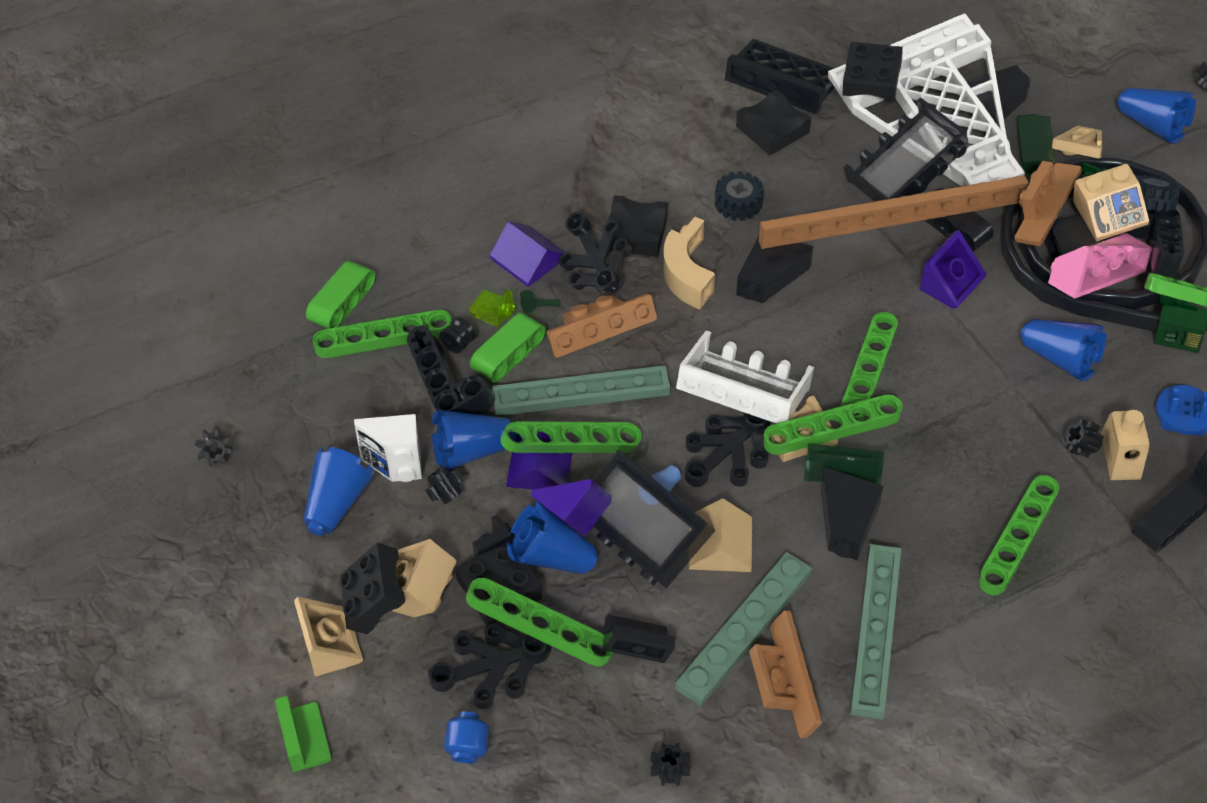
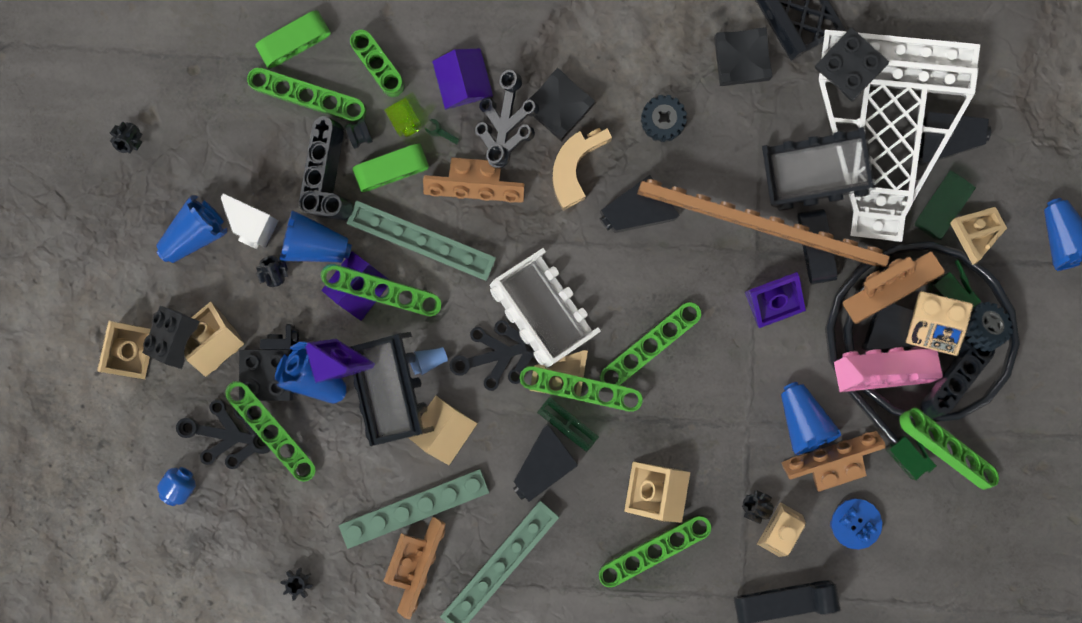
camera: 35 degrees right, 35 degrees up
(303, 734) = (74, 415): bright green panel -> none
(438, 275) = (374, 52): none -> bright green beam
(637, 639) = (332, 477): black panel -> none
(978, 477) = (657, 492): none -> tan slope
(1123, 371) = (835, 463): none -> medium nougat bracket

